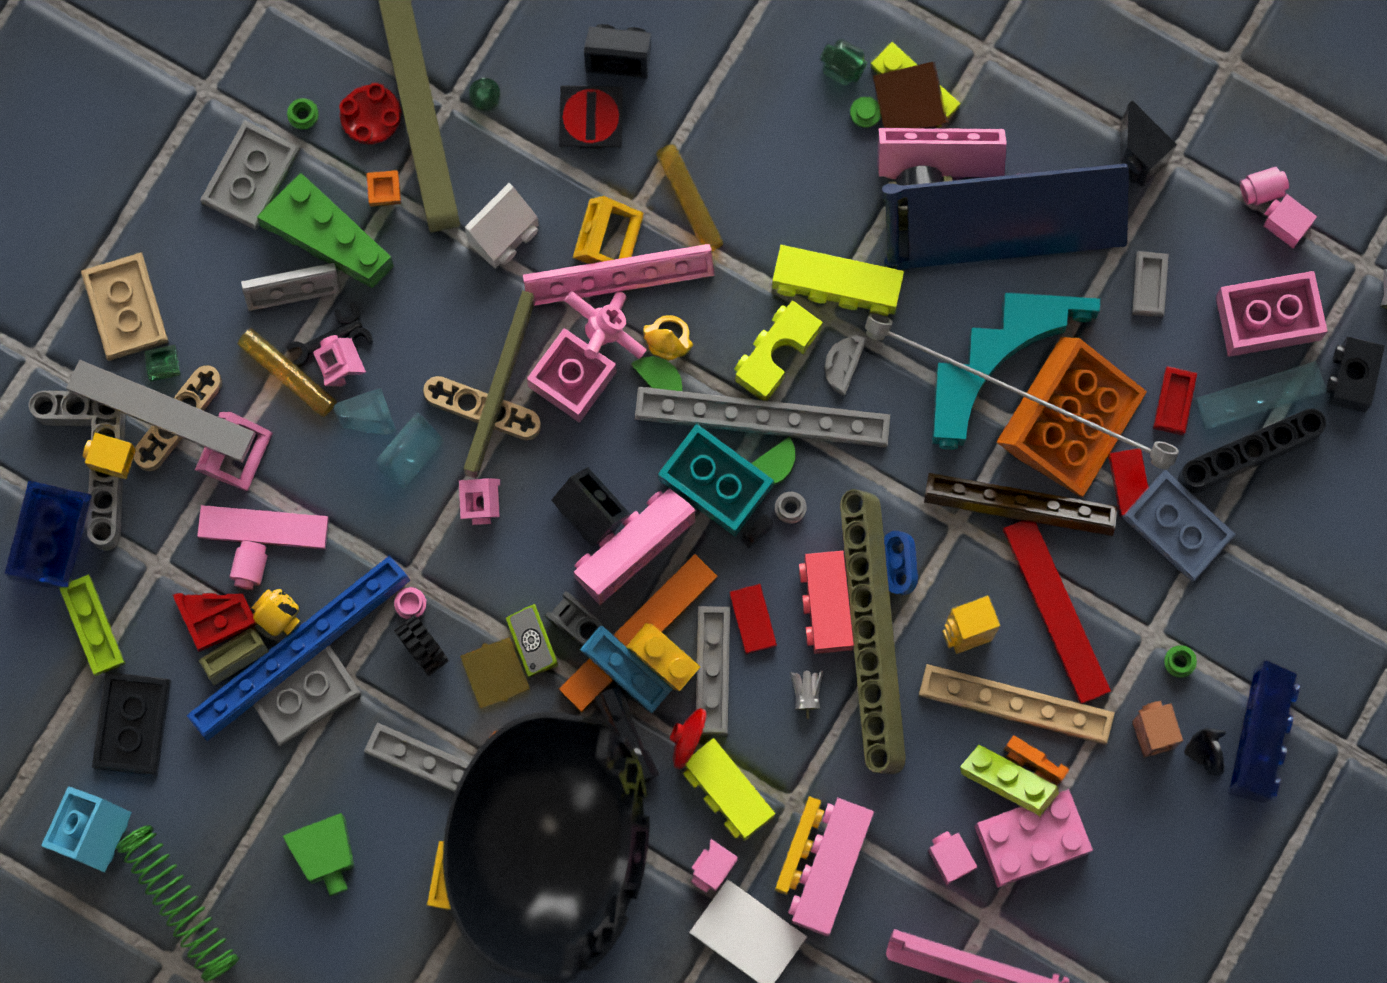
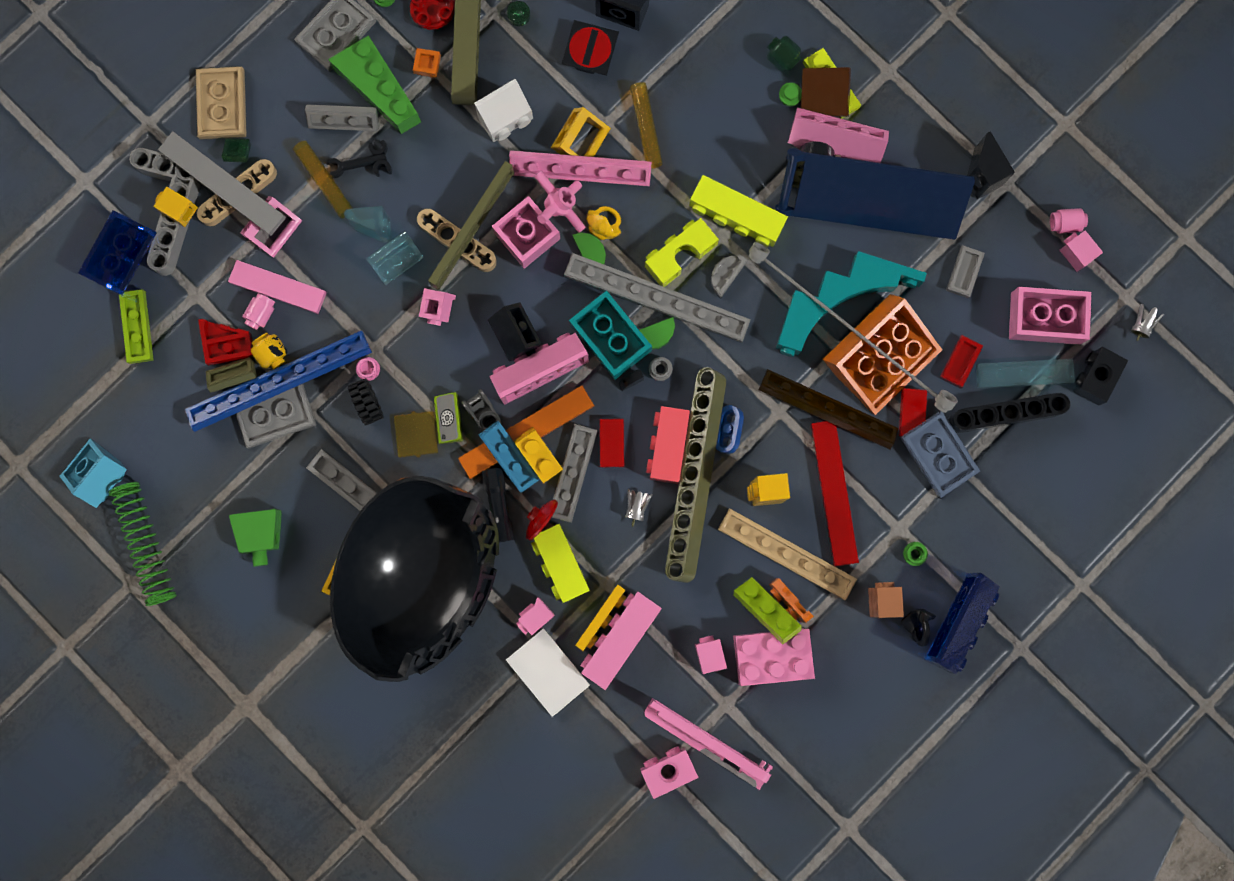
camera: 15 degrees right, 5 degrees up
(131, 723) = (146, 404): black tile -> none
(337, 359) = (361, 178): bright pink window -> none

